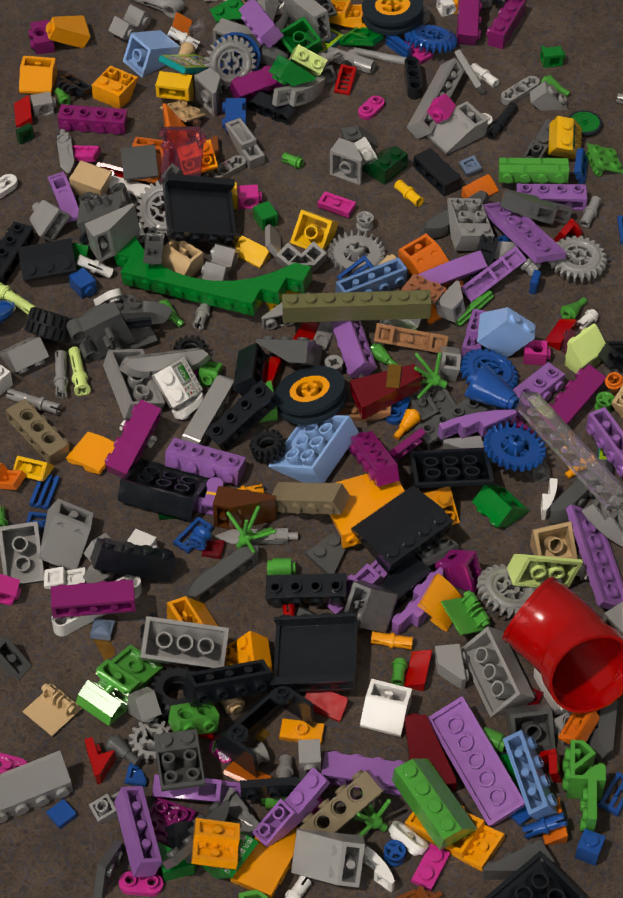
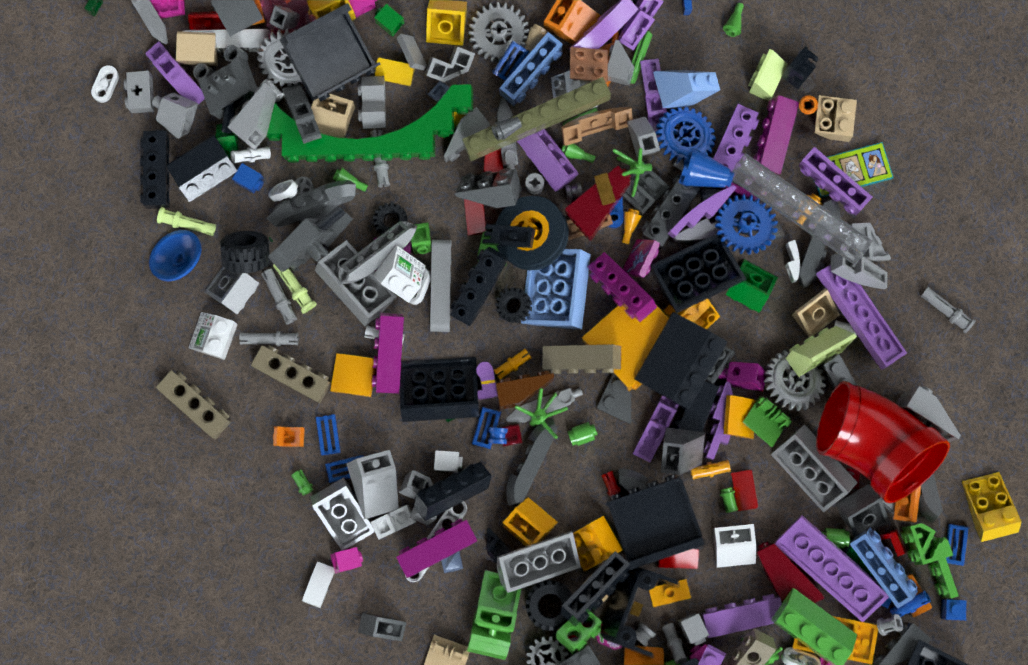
camera: 20 degrees left, 30 degrees up
(25, 197) = (143, 102): none -> light grey brick
(33, 468) = (305, 416): yellow slope -> none
(105, 648) = (462, 578): pearl gold window -> none
(143, 705) = (530, 634): light grey slope -> none
(205, 461) = (463, 346): medium lavender brick -> none
(249, 368) = (461, 227): black brick -> none
(290, 385) = (509, 236): none -> black hinge
(307, 589) = (618, 452): black brick -> none
(323, 292) = (505, 128): none -> dark grey cone
(450, 666) = (771, 475): light grey slope -> none
(509, 842) = (889, 624): none -> light grey bush
(536, 353) = (729, 90): dark pink brick -> none
(555, 338) = (732, 56): red slope -> none
(567, 335) = (746, 67): clear pink pin -> none
(589, 317) = (752, 29): white pin -> none
(605, 398) = (806, 124): bright green wheel -> none

